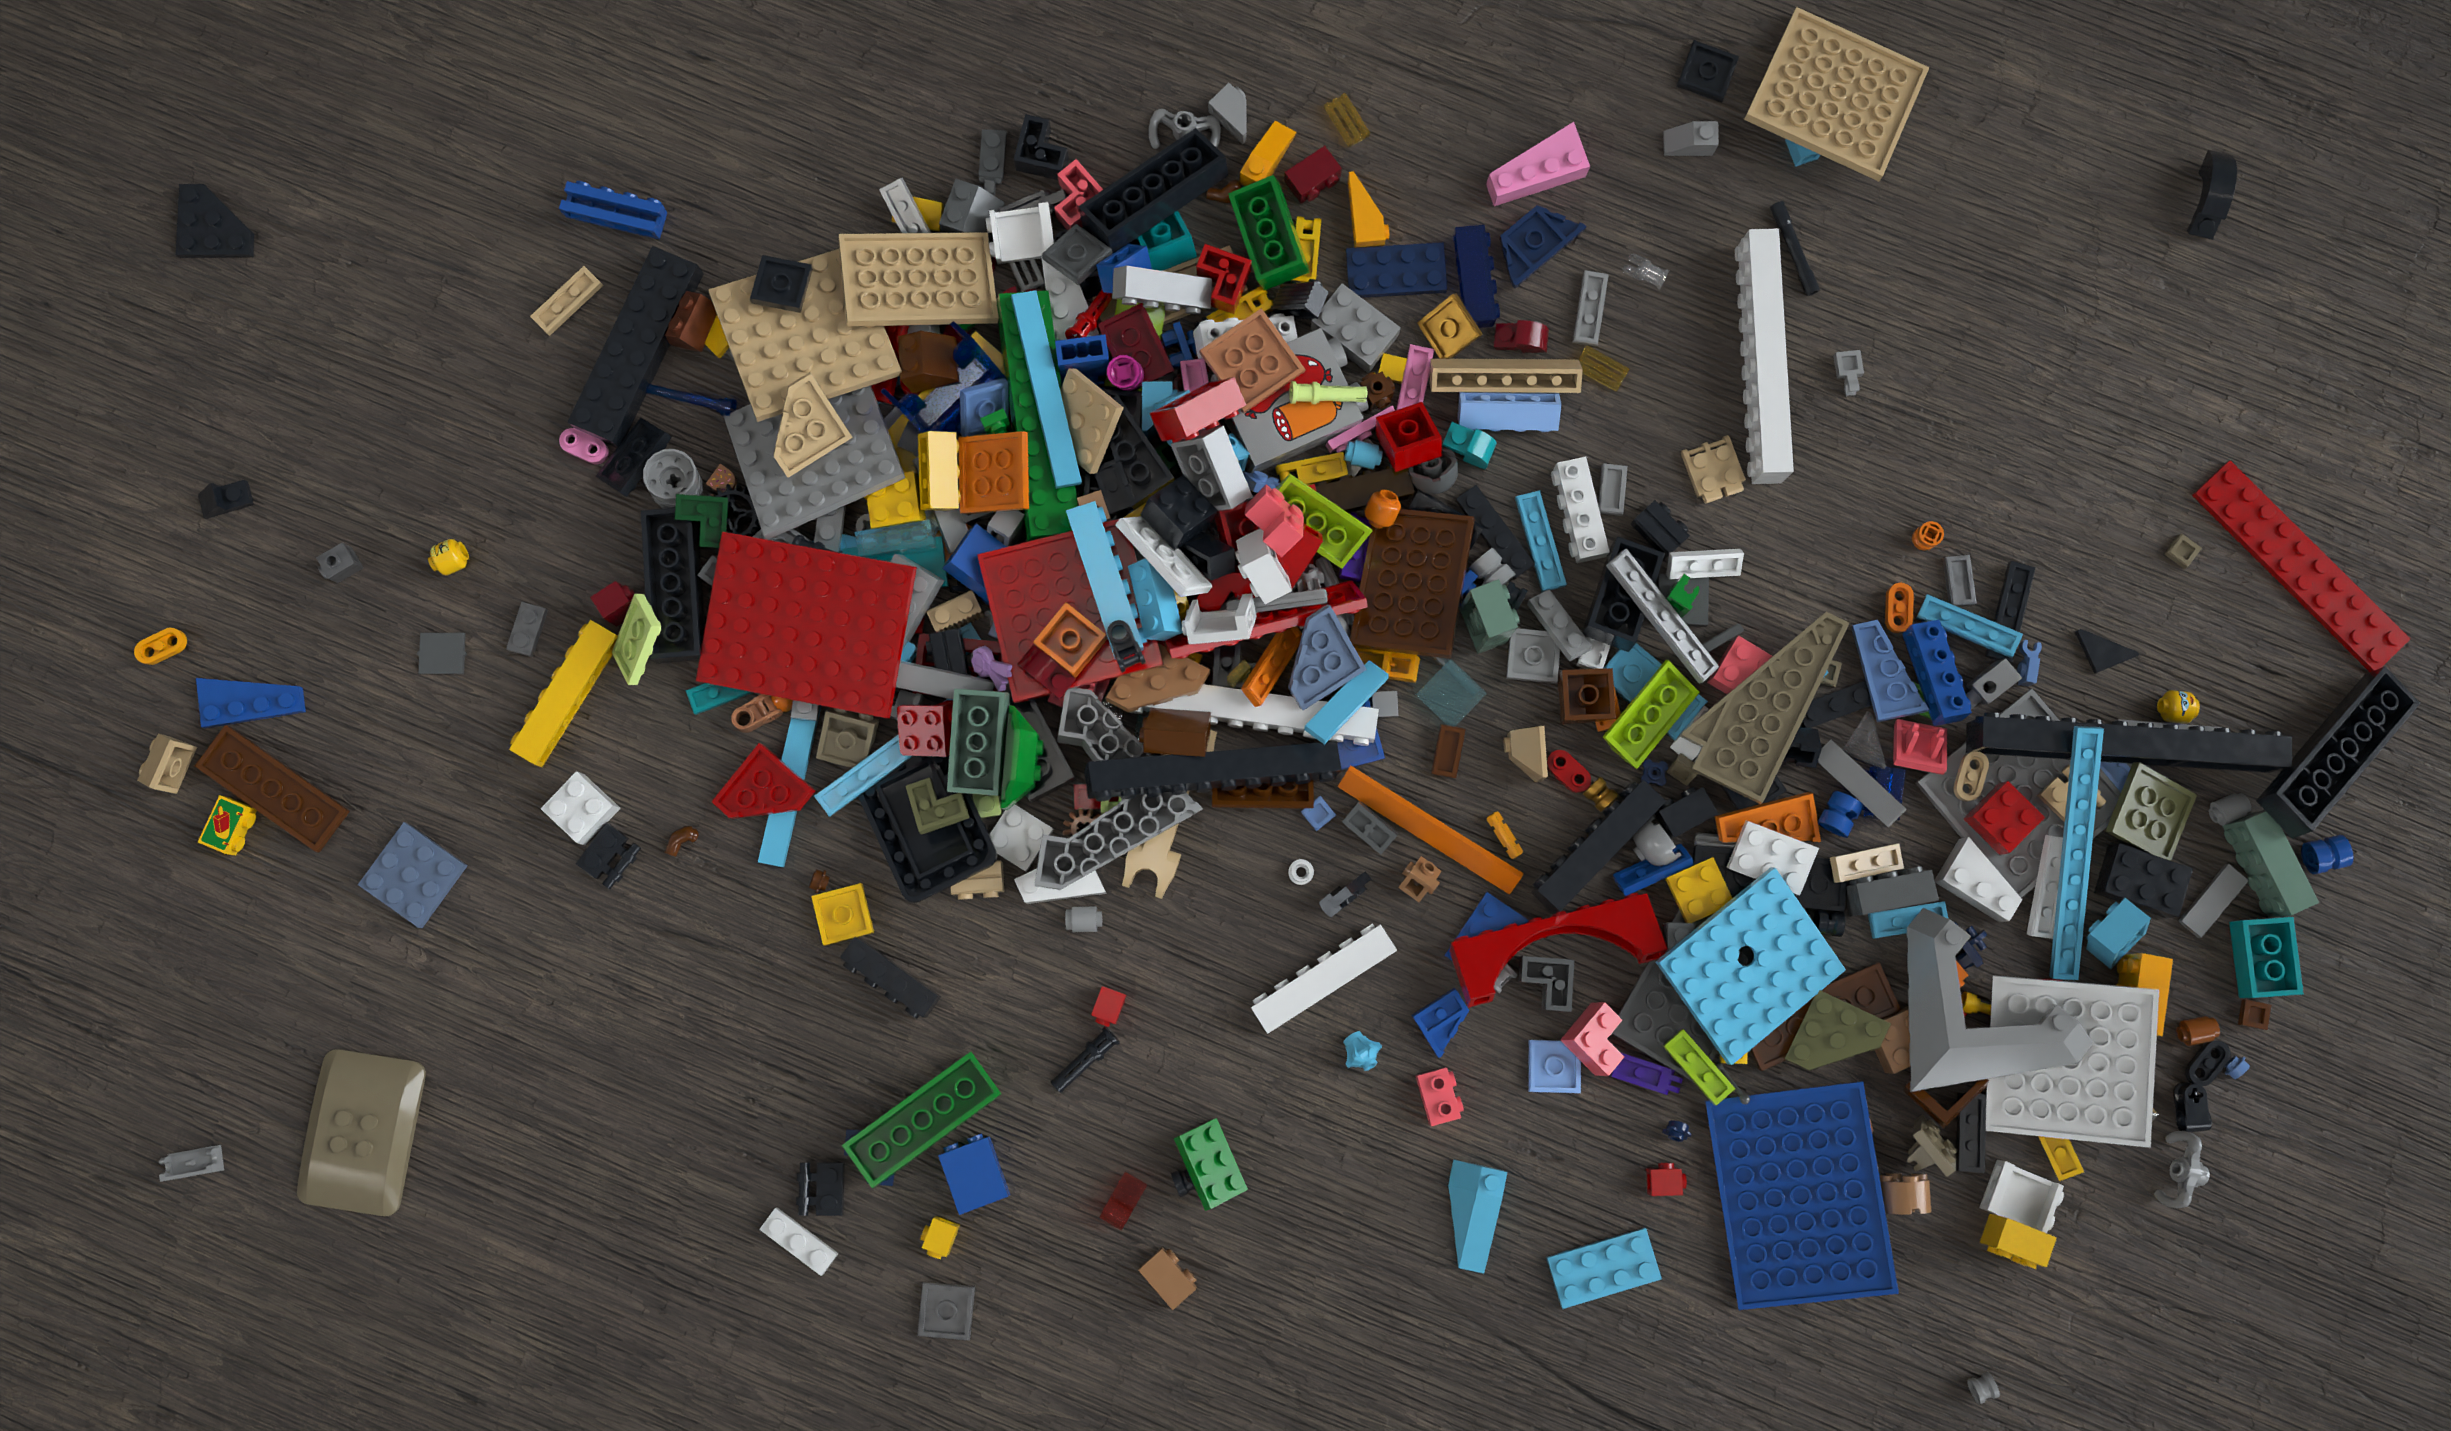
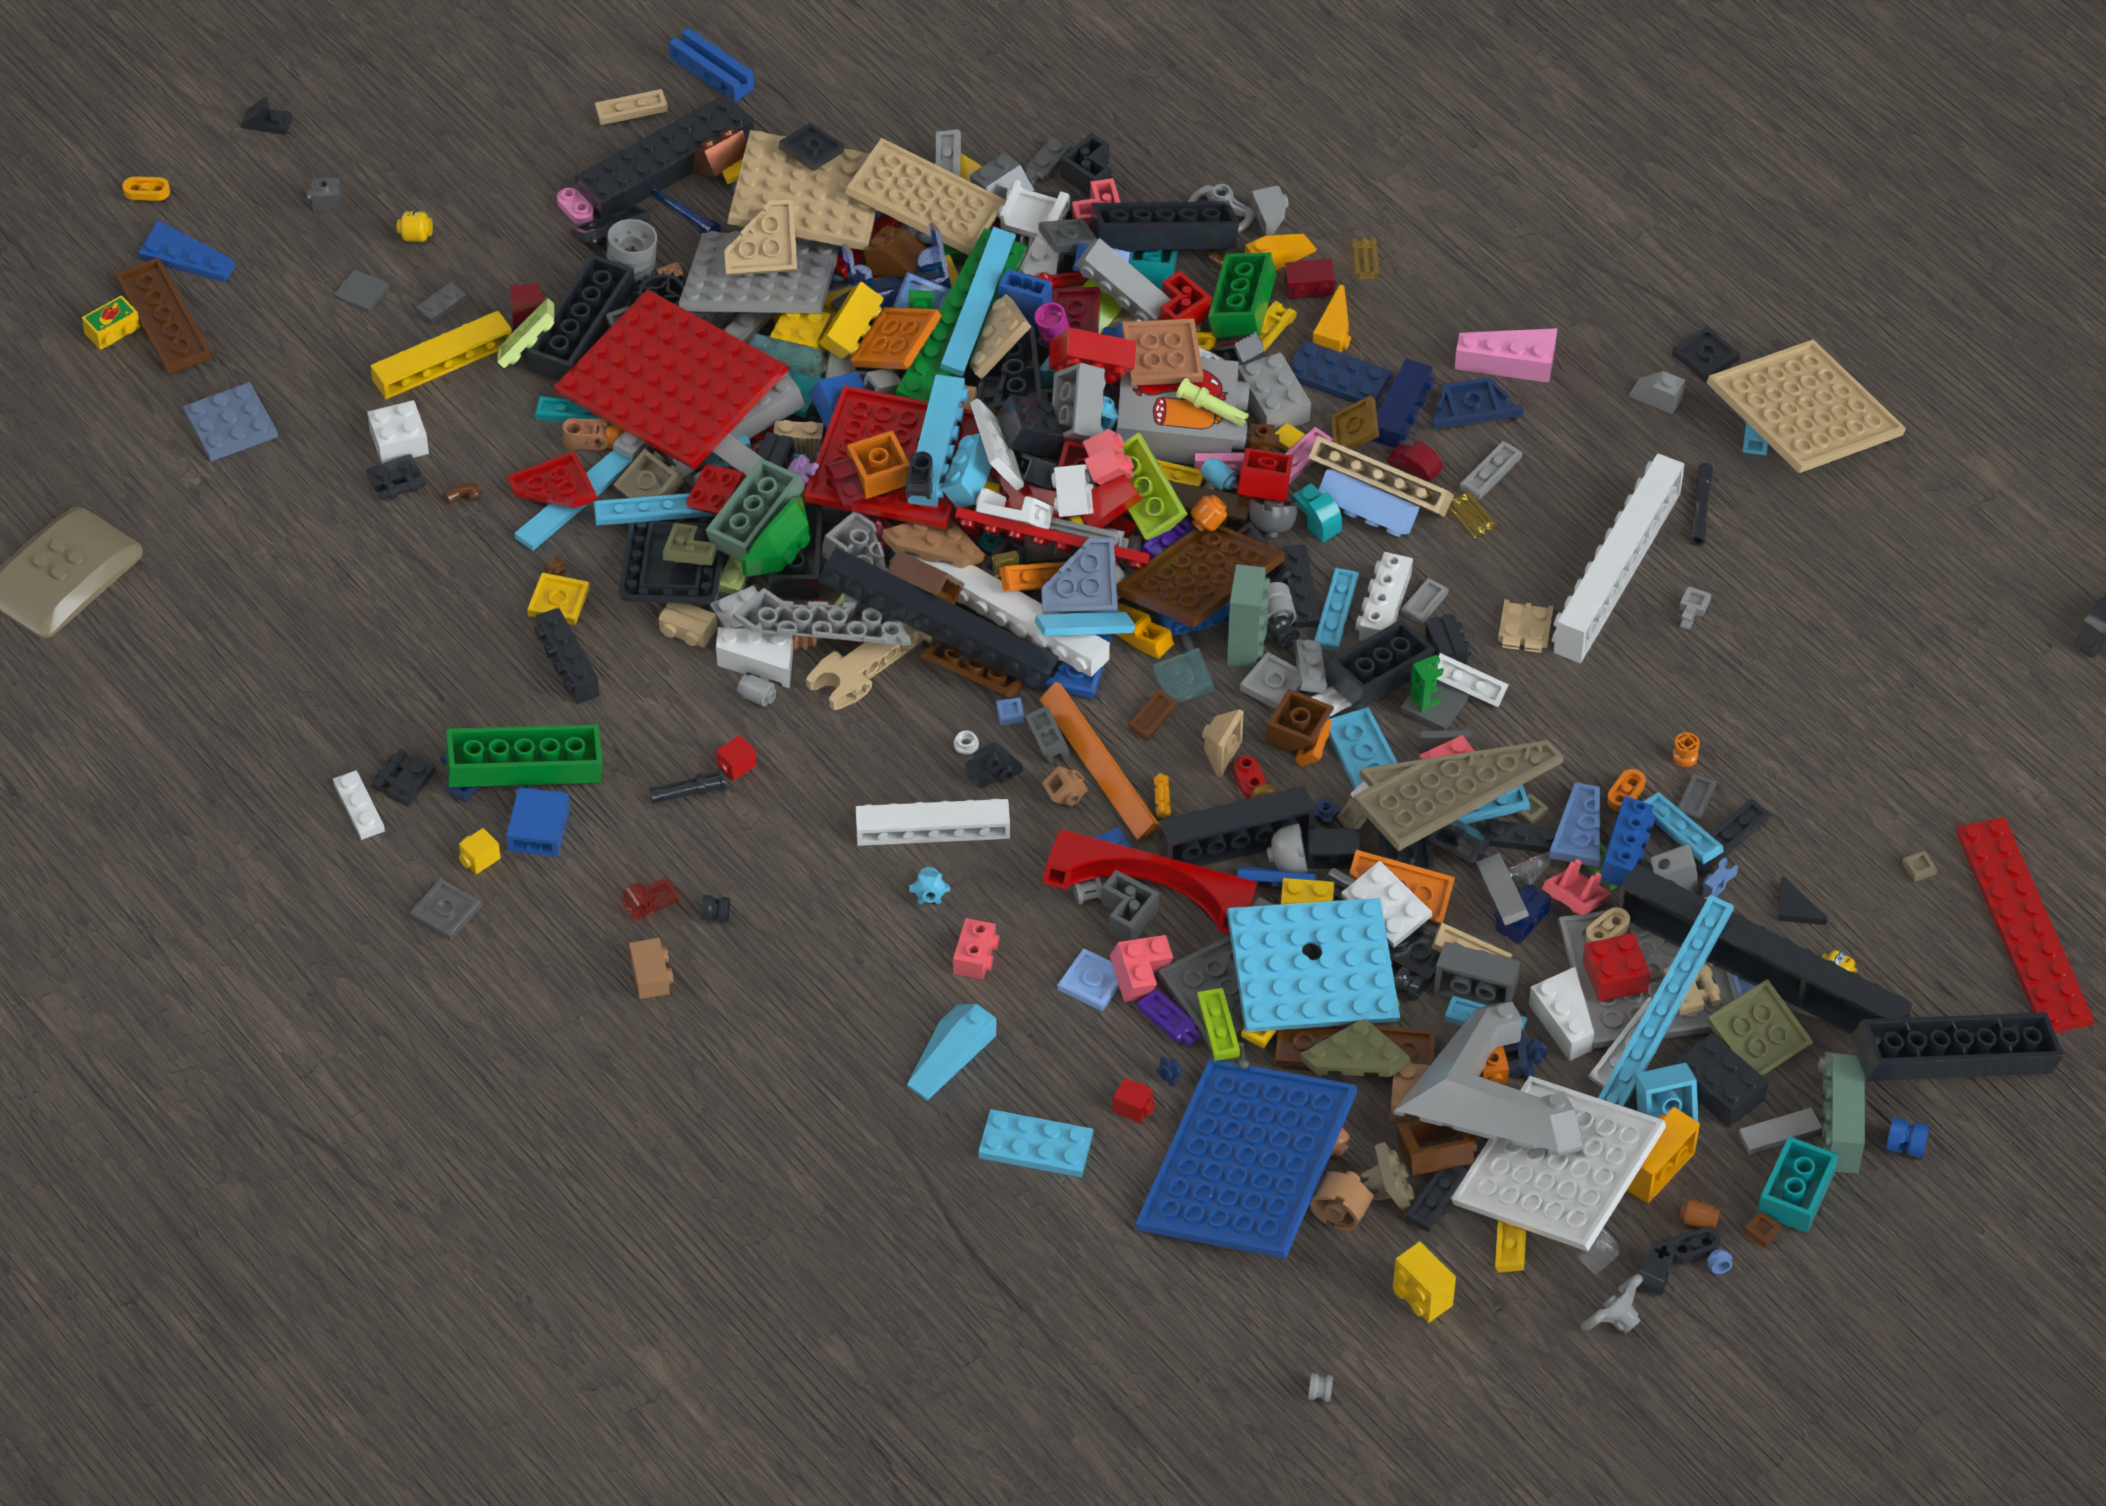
camera: 30 degrees right, 30 degrees down
(166, 764) = (95, 261): tan slope -> none
(709, 511) = (643, 271): dark green plate -> none
(1210, 1164) = (743, 901): plate -> none
(1386, 703) = (1121, 661): light grey tile -> none
(1441, 1020) = (1015, 898): blue wing -> none
(1646, 271) = (1556, 462): clear piece -> none
(1650, 714) = (1338, 760): lime slope -> none
(1662, 616) = (1401, 685): light grey tile -> none
(1840, 814) = (1473, 907): blue wheel -> none
(2022, 1196) = (1459, 1259): white panel -> none

